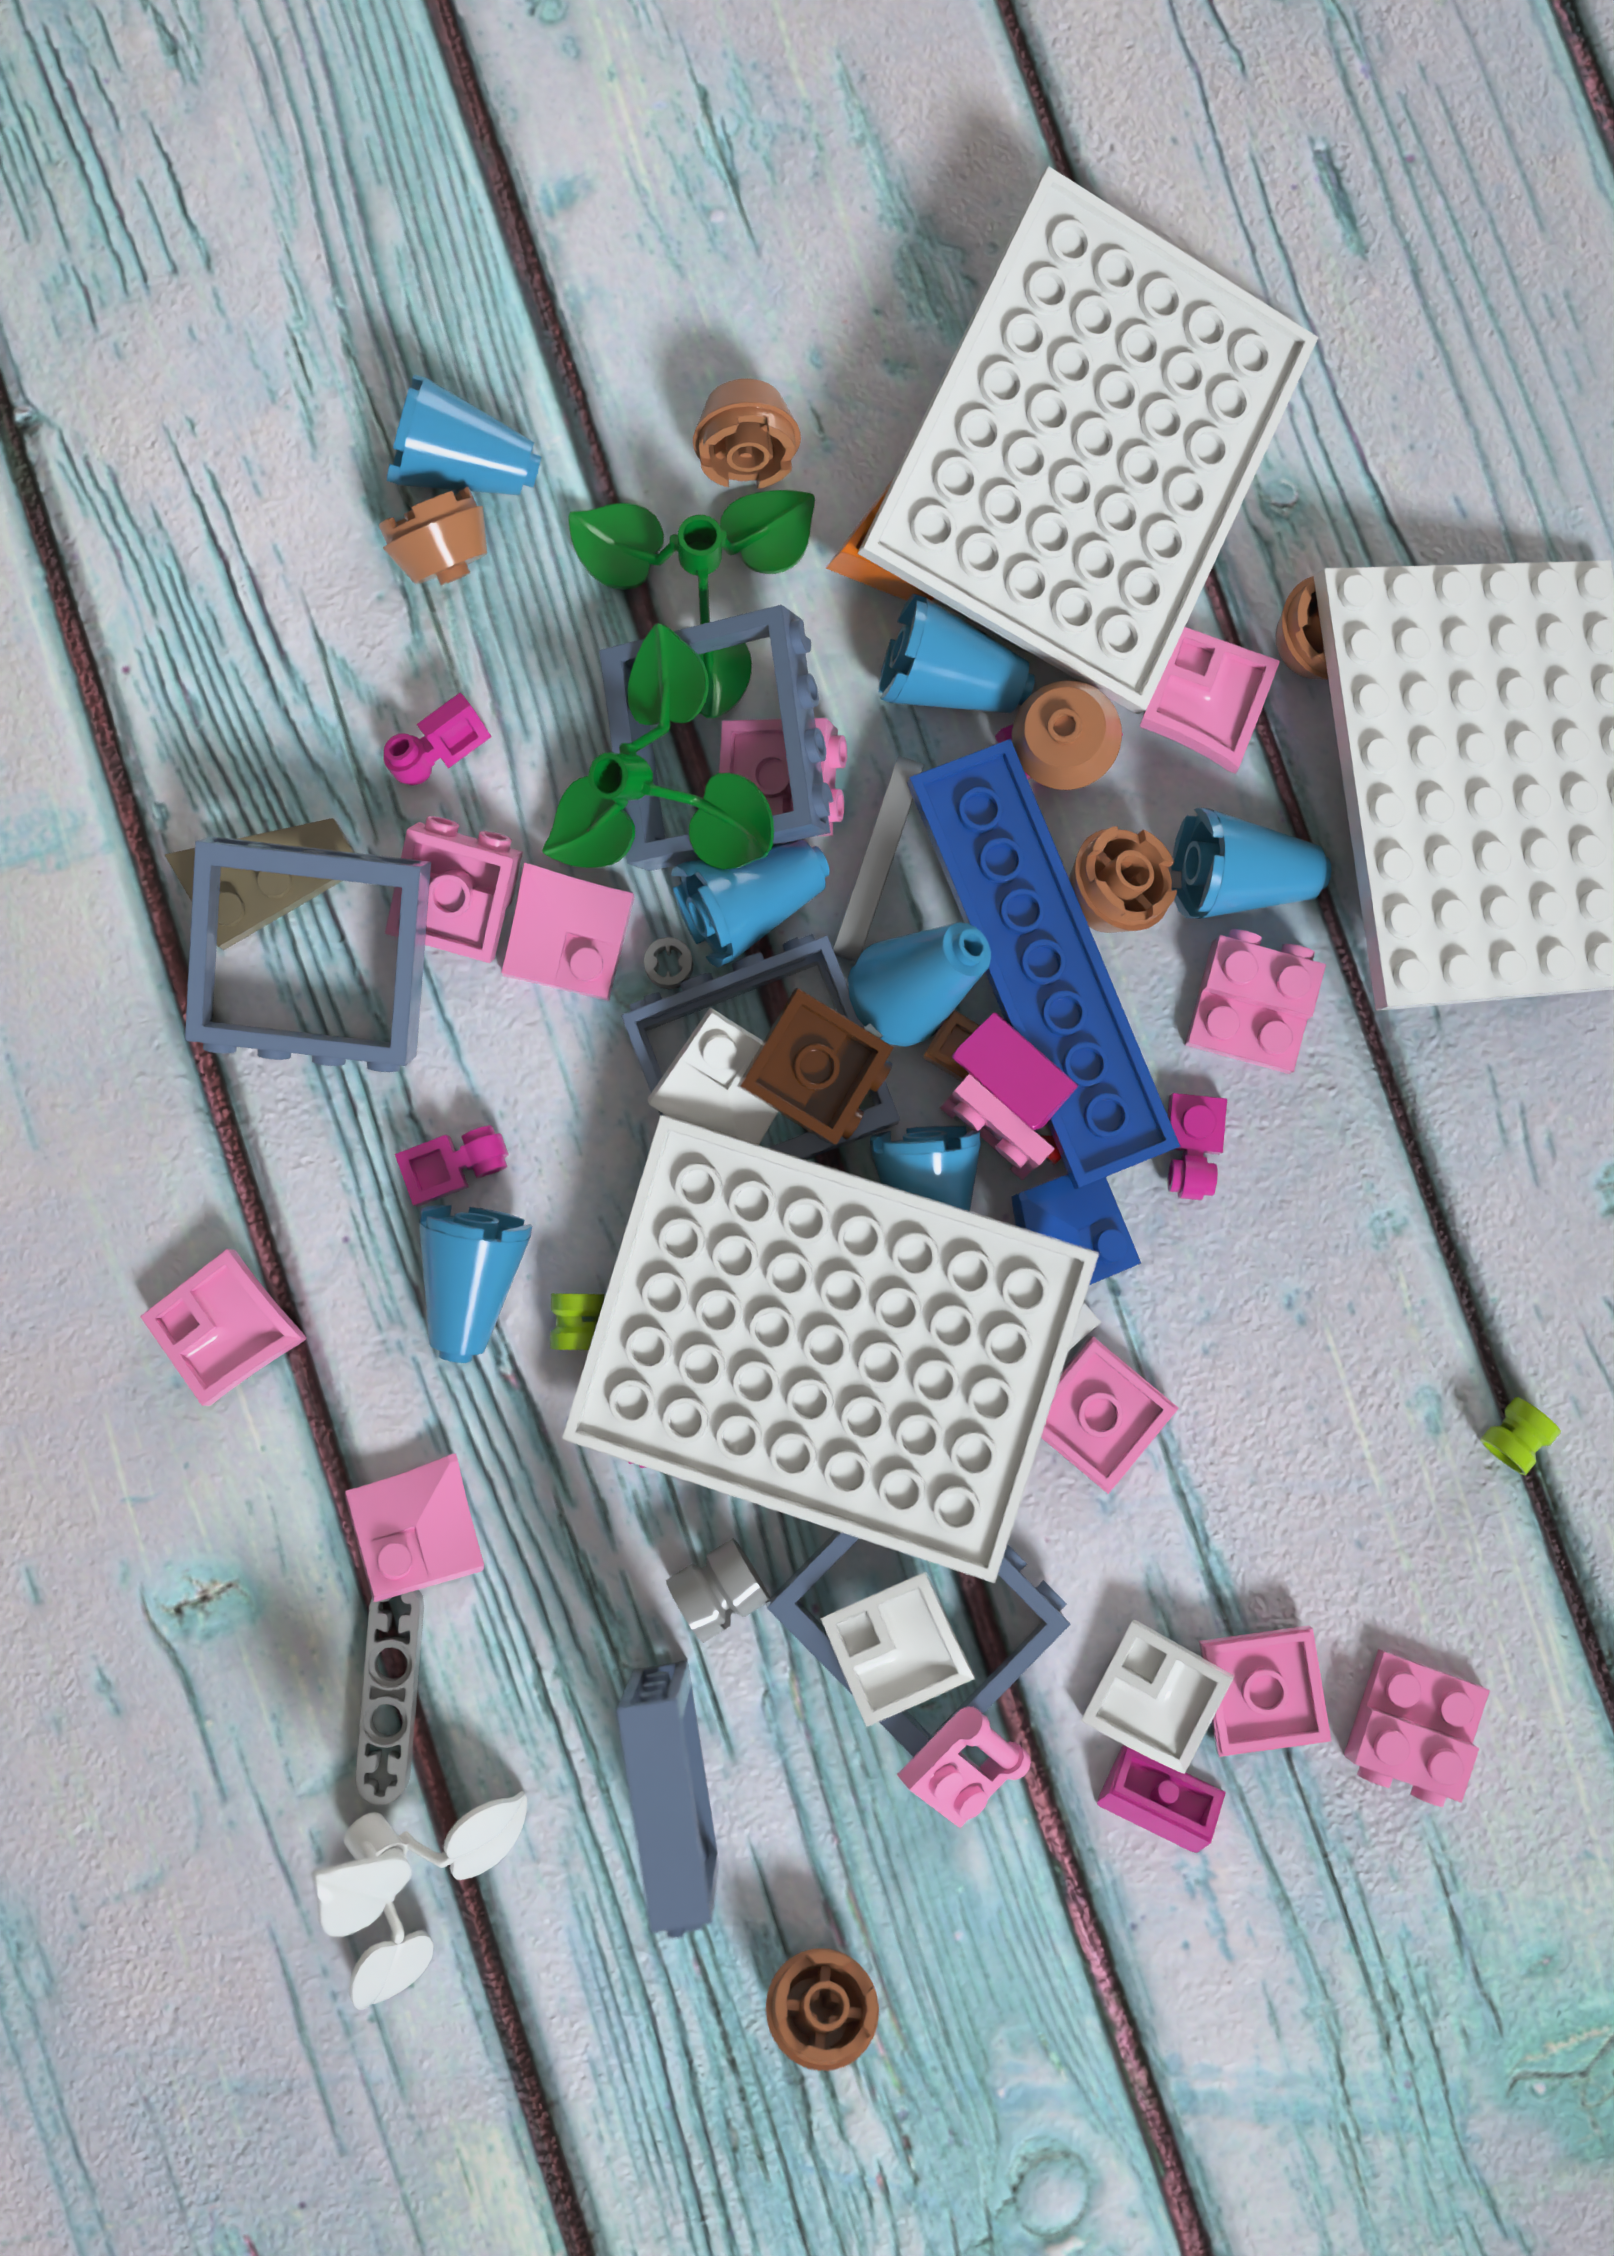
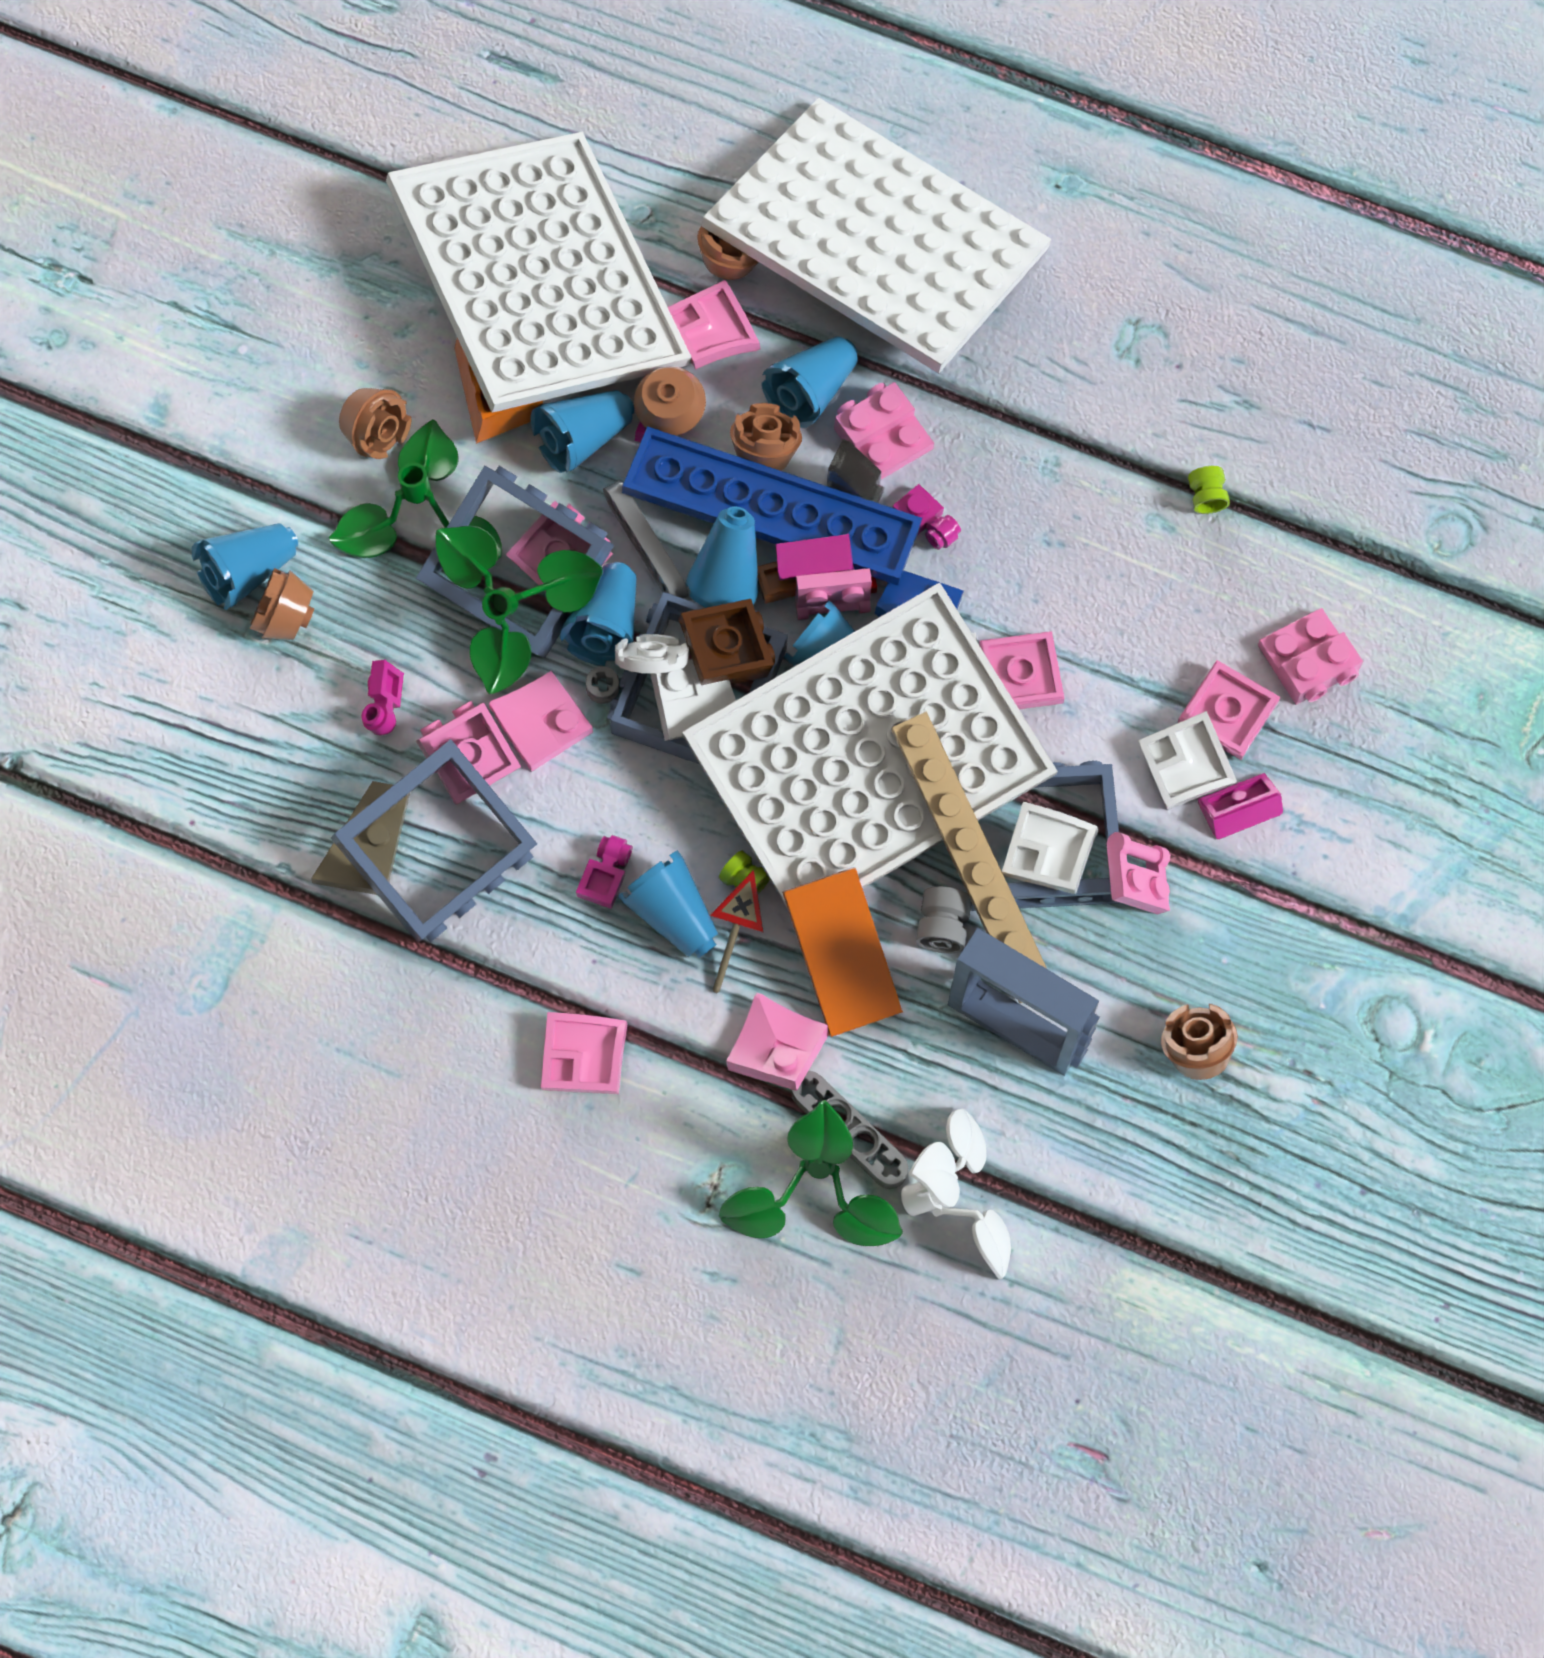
camera: 45 degrees left, 15 degrees down
(307, 1708) = (822, 1142): none -> green plant
(529, 1356) = (741, 909): none -> piece
(575, 1512) = (842, 951): none -> orange tile
(724, 997) = (652, 654): none -> white tile
(808, 1568) = (963, 835): none -> tan plate
(1163, 1024) = (854, 473): none -> clear smoke slope

